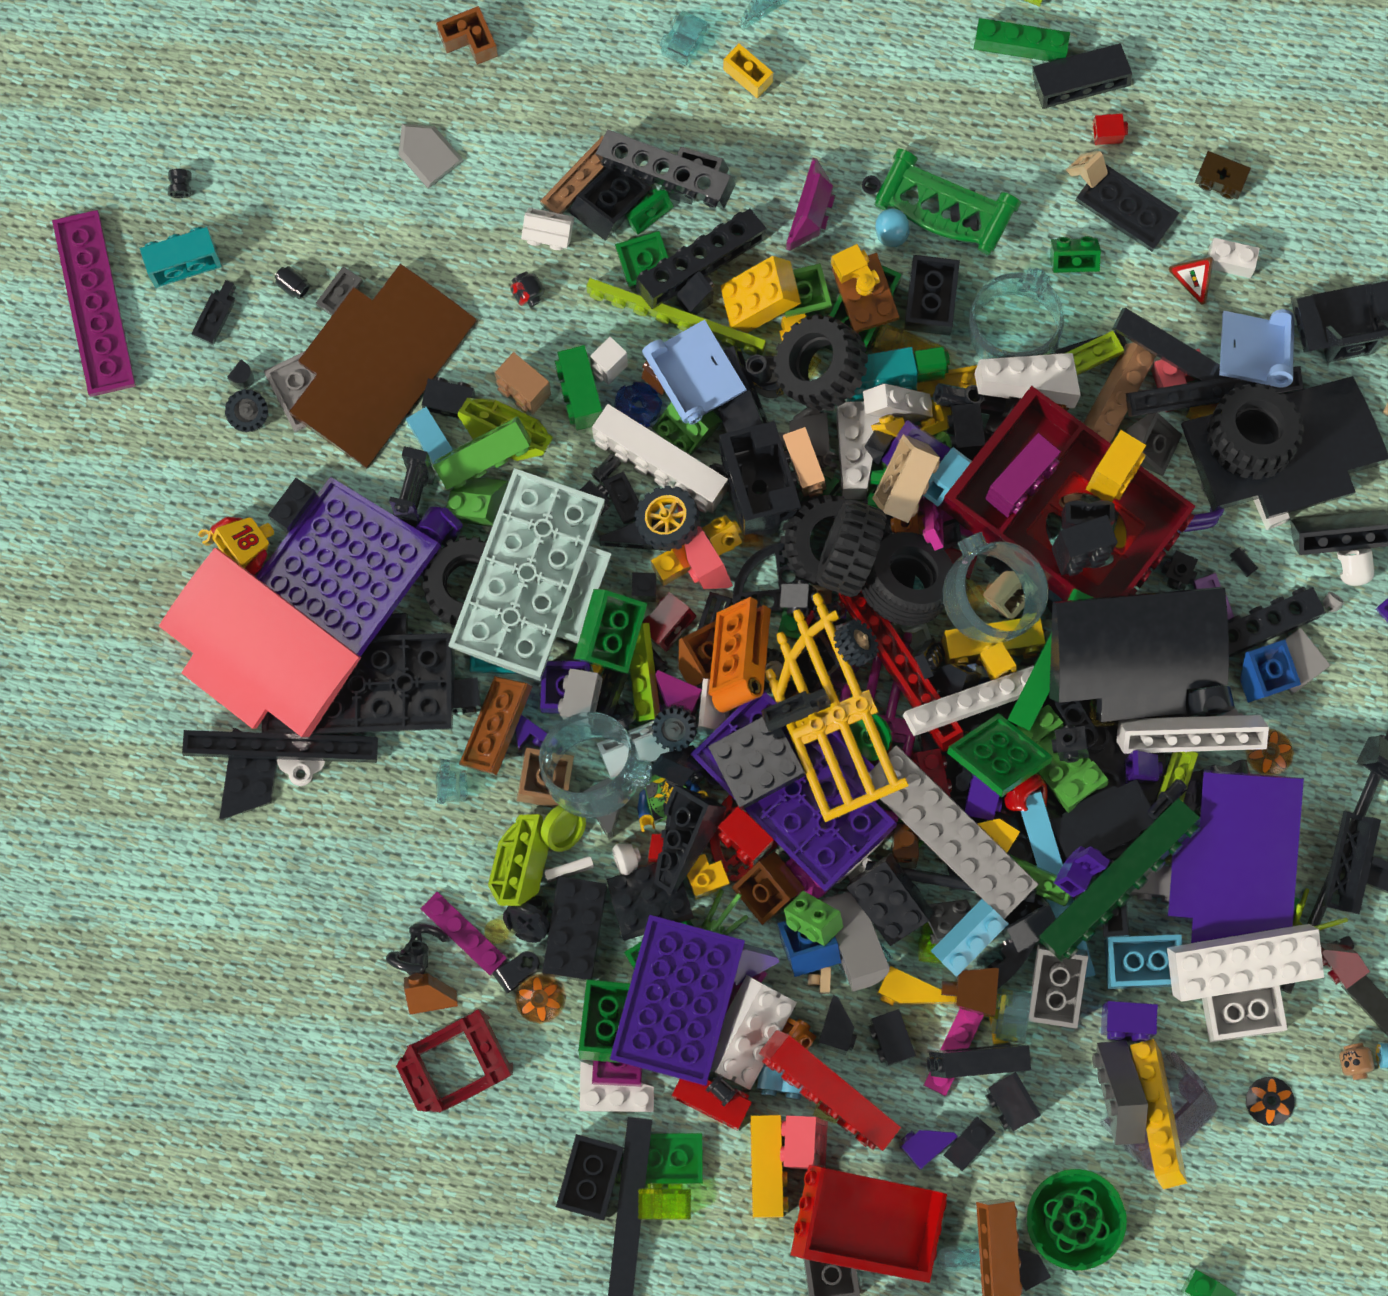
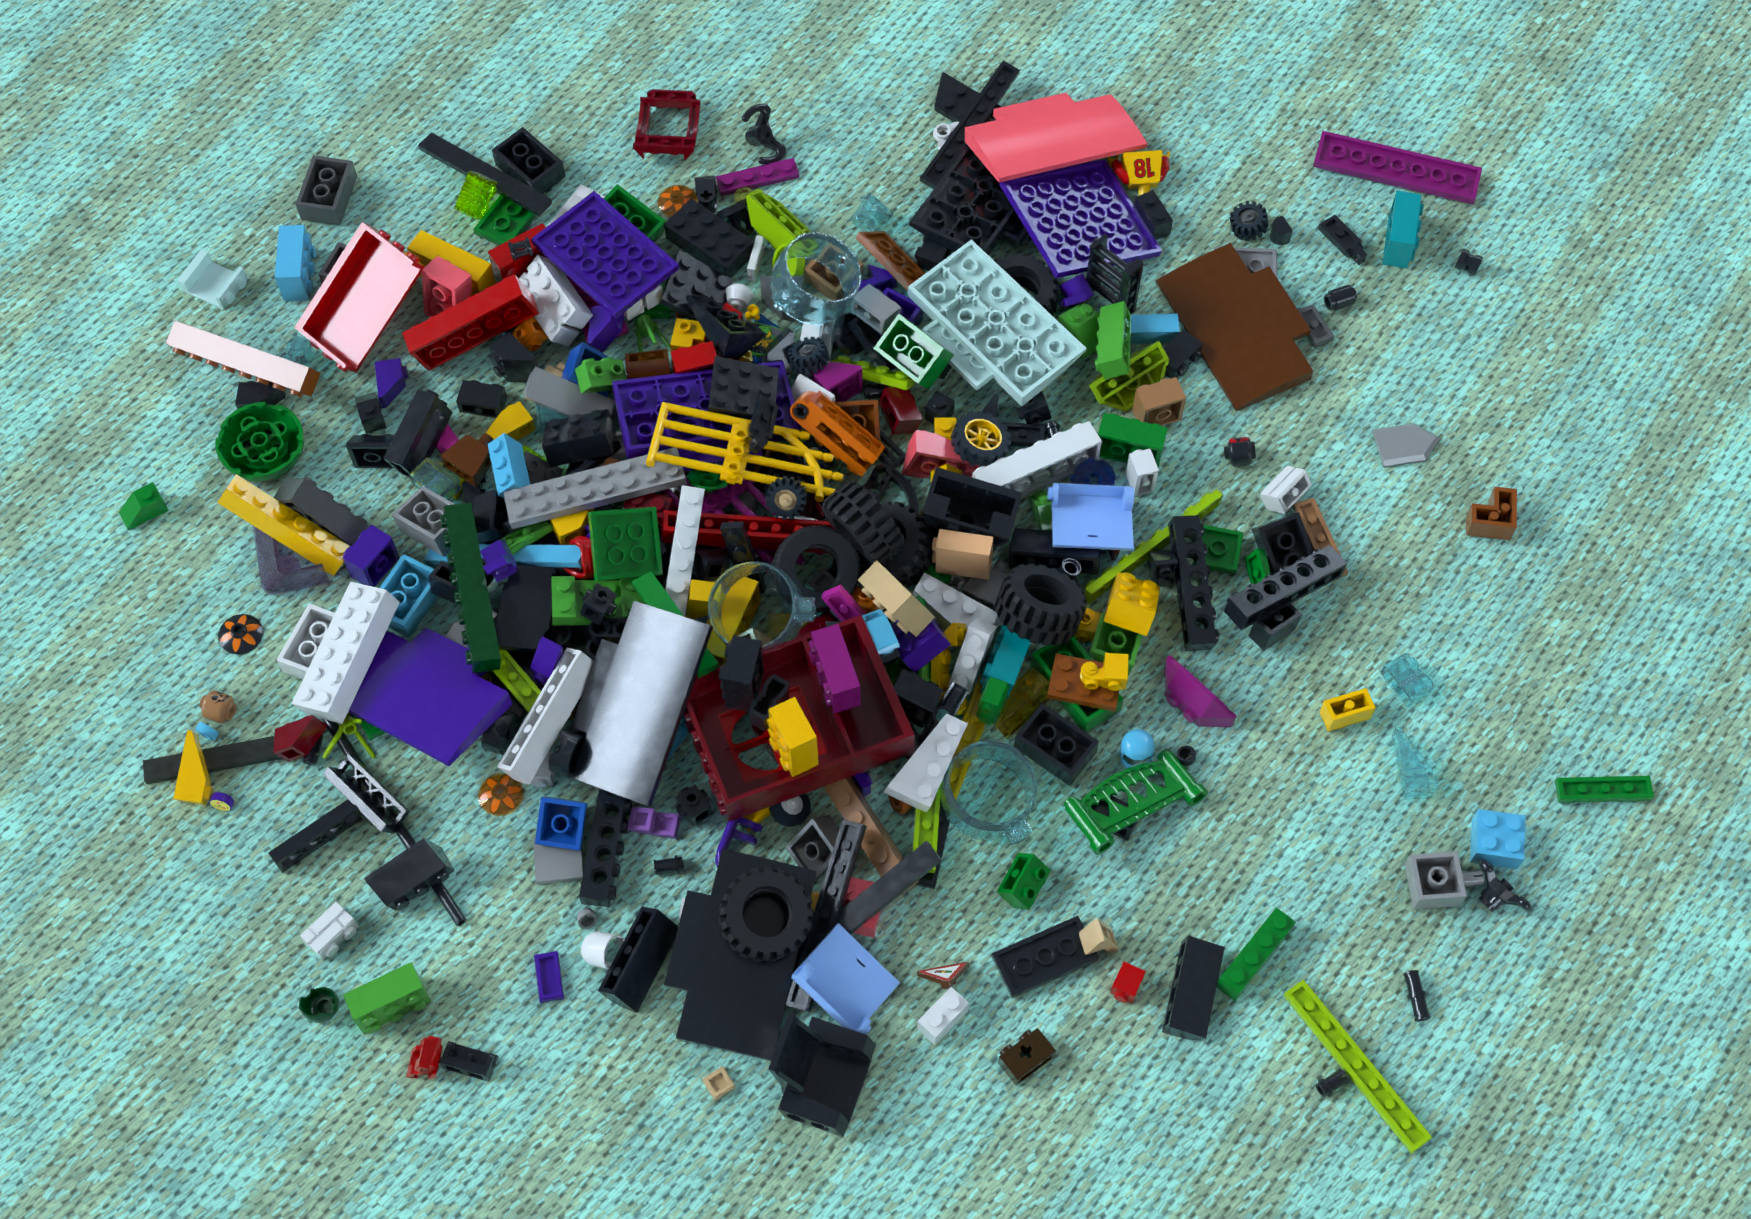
camera: 120 degrees right, 15 degrees down
(428, 994) = (727, 131): dark orange slope -> none
(878, 445) = (945, 617): black slope -> none
(1167, 798) = (509, 661): black axle -> none

